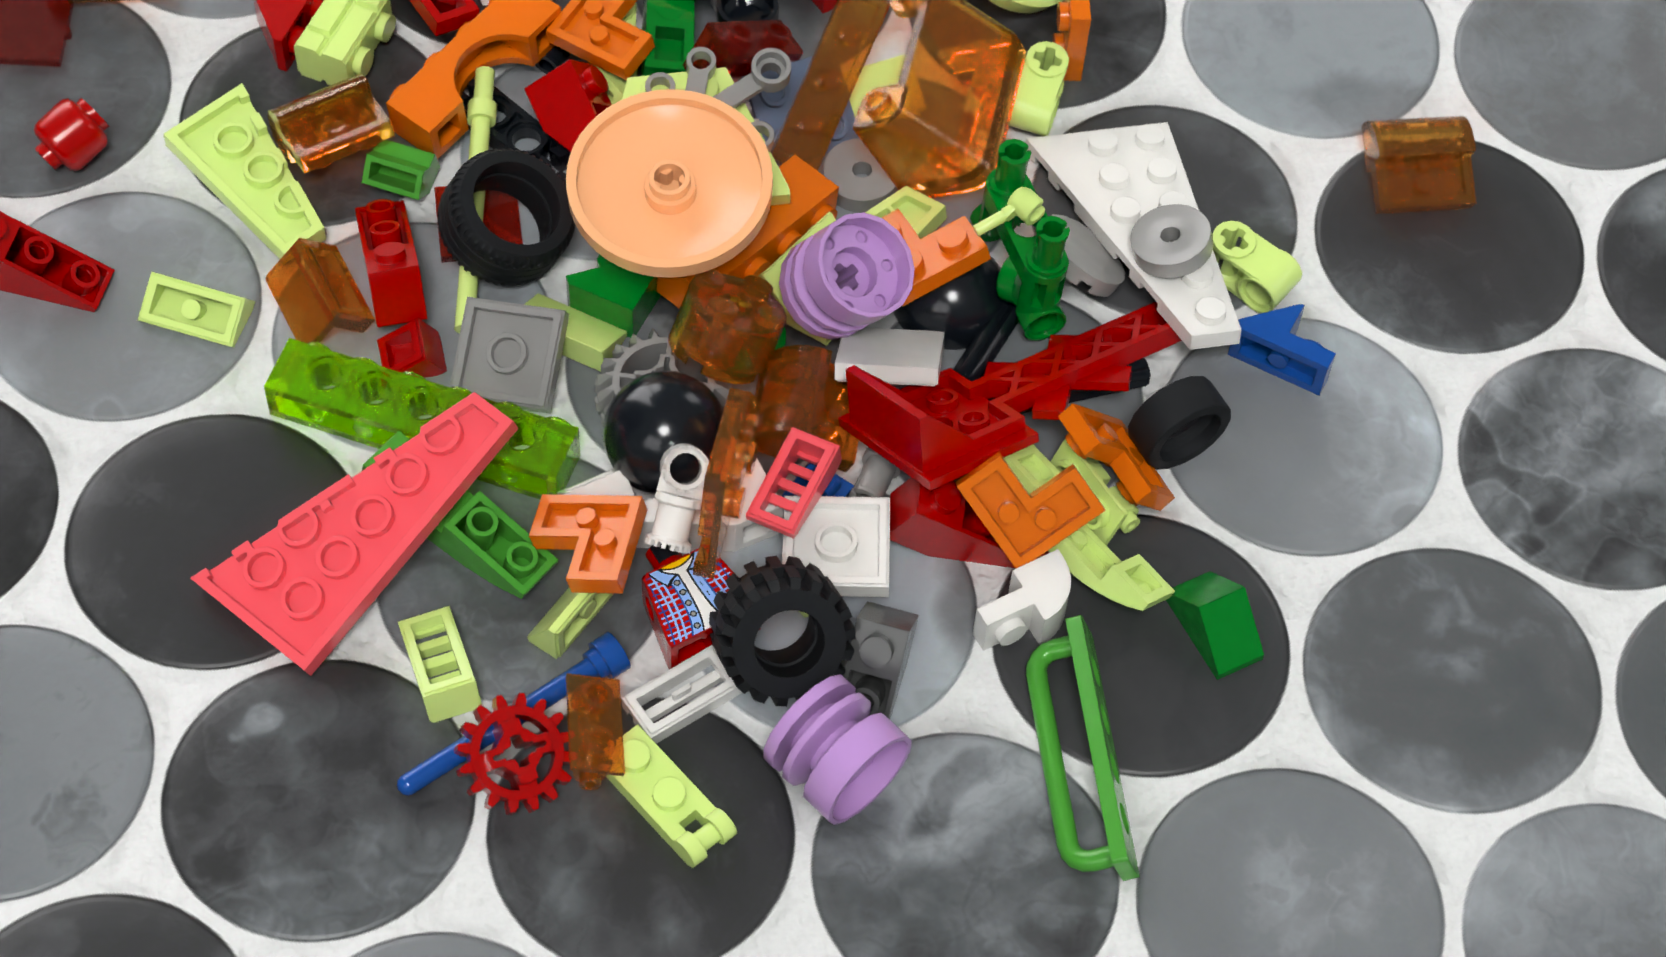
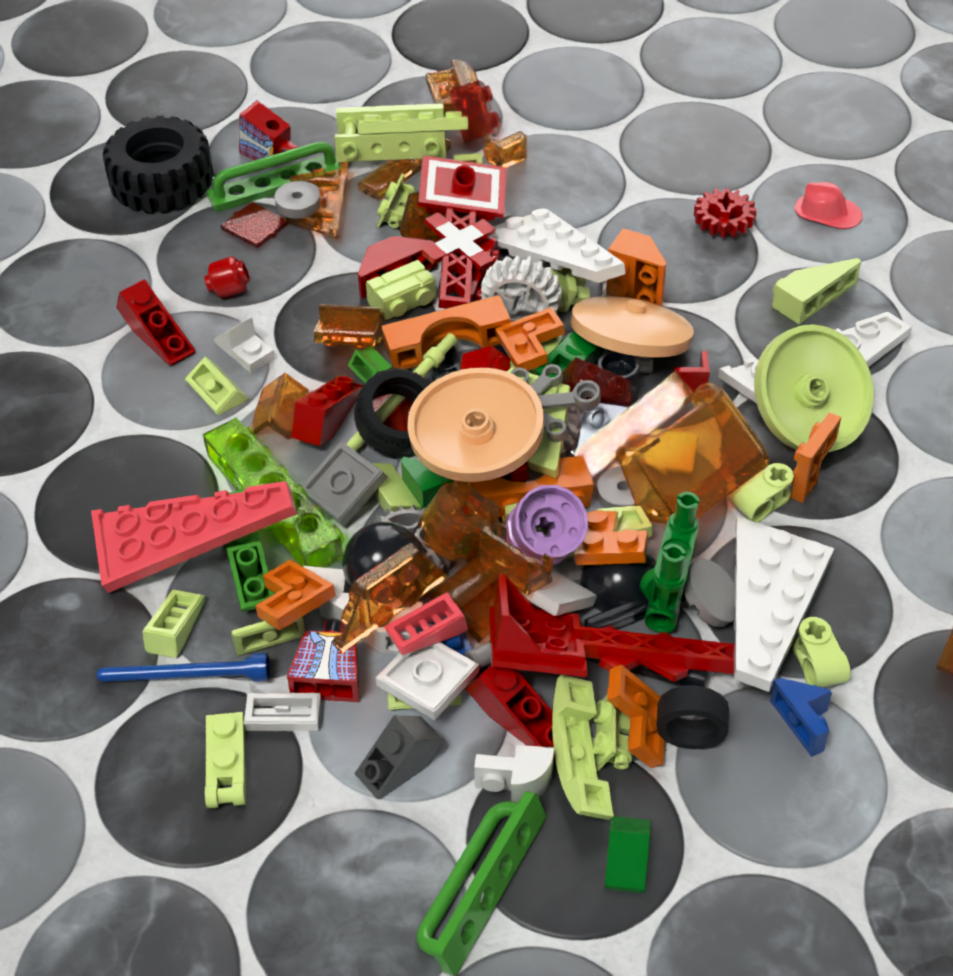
camera: 40 degrees right, 10 degrees down
(176, 226) = (245, 346): none -> white slope
(243, 167) = (293, 332): yellowish green wing -> none
(414, 349) = (302, 459): red slope -> none
(507, 729) = (157, 702): red gear -> none
(594, 729) = (212, 698): clear orange hinge -> none
(677, 502) = (335, 607): white connector -> none
(763, 594) = (326, 715): black tyre -> none
(837, 749) = (327, 785): lavender wheel -> none
(842, 344) = (509, 560): none -> clear orange hinge
(1022, 203) = (677, 534): yellowish green hand -> none
(1026, 522) = (540, 718): orange plate -> none
(1177, 258) = (768, 608): light grey piece -> none

